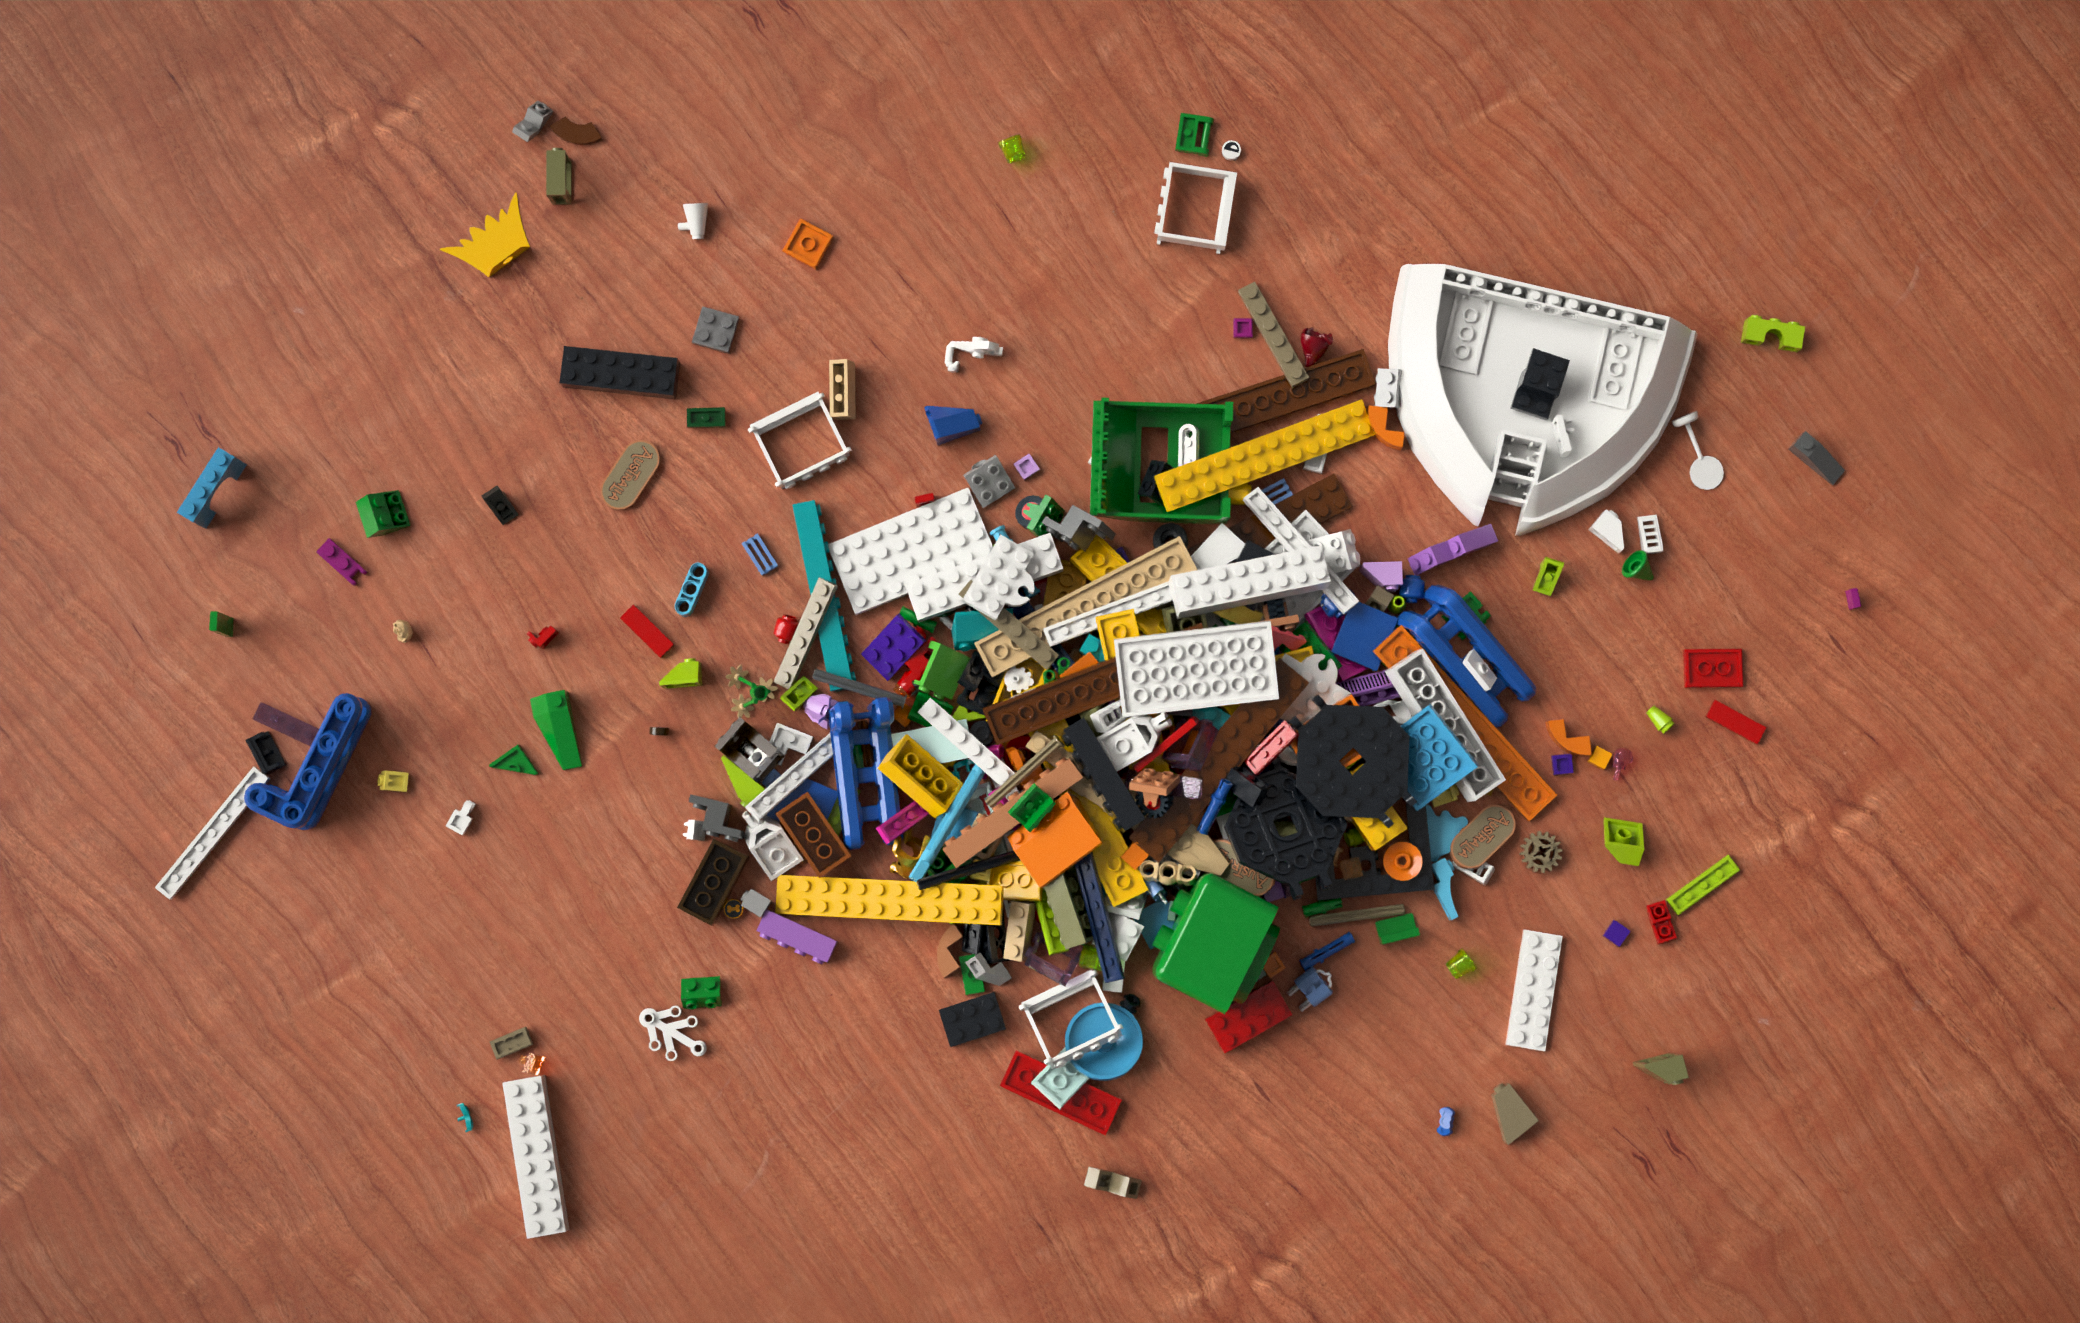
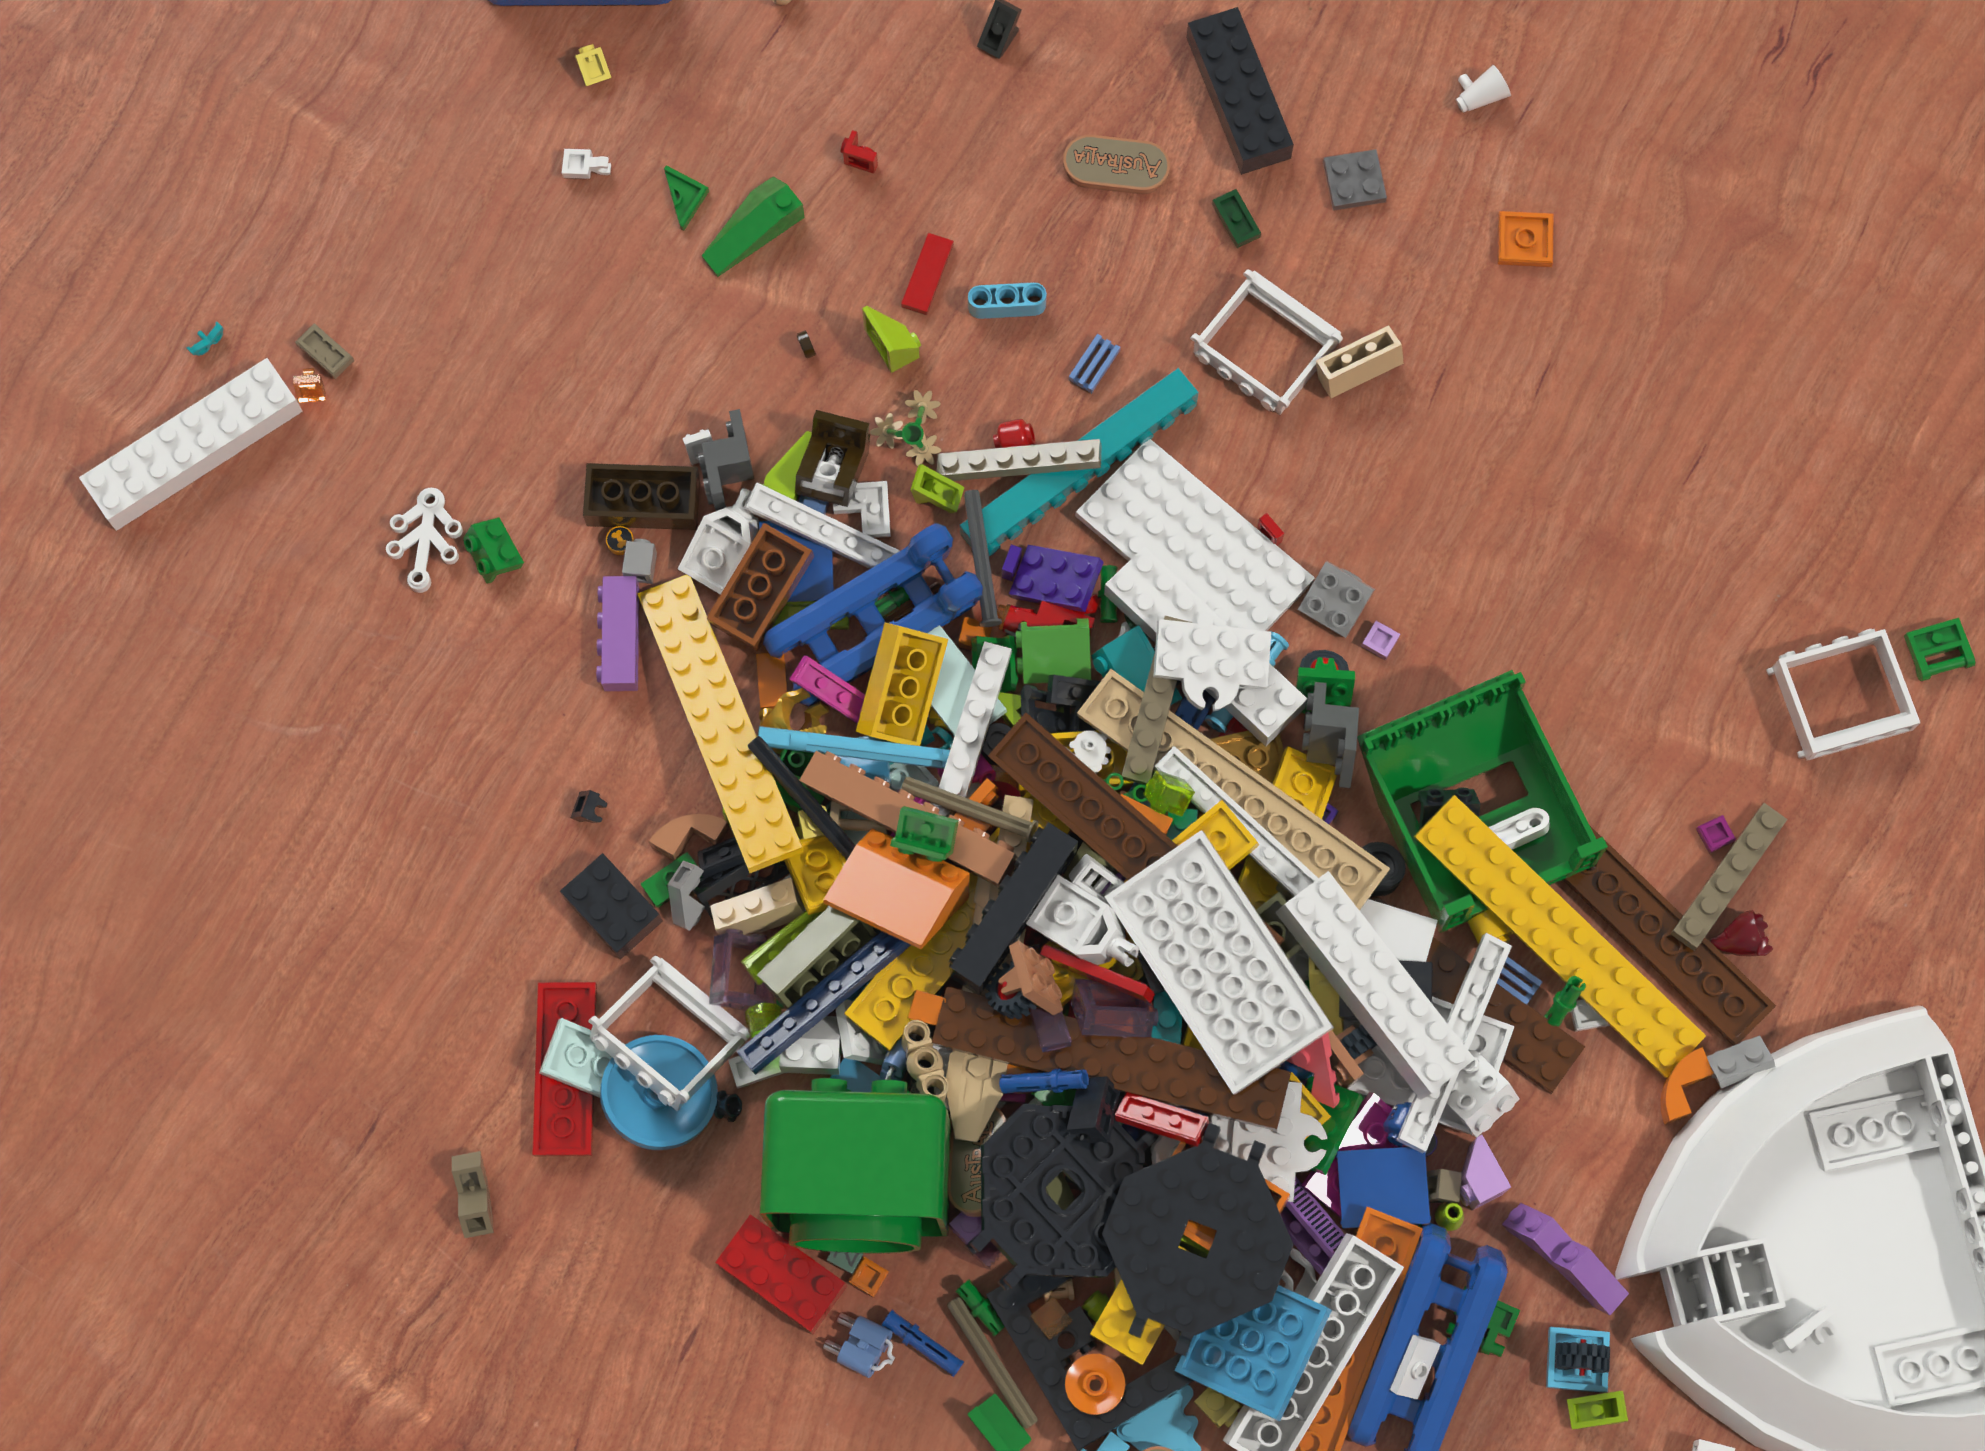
camera: 65 degrees right, 10 degrees down
(818, 708) = (927, 515): lavender brick -> none
(868, 670) = (1011, 562): none -> dark purple tile
(874, 855) = (771, 679): none -> orange tile
(900, 1007) = (586, 805): none -> black tile
(952, 423) = (1387, 517): blue slope -> none
(978, 348) = (1504, 504): white animal -> none
(1012, 148) = (1789, 427): clear neon green piece -> none
(1073, 646) = (1168, 793): none -> clear neon green brick
(1231, 150) = (1945, 708): white tile -> none
(1304, 471) = (1565, 1001): none -> green pin
(1412, 588) = (1481, 1226): blue head -> none
(1513, 572) = (1578, 1359): none -> plate
(1540, 384) = (1859, 1262): black bracket -> none

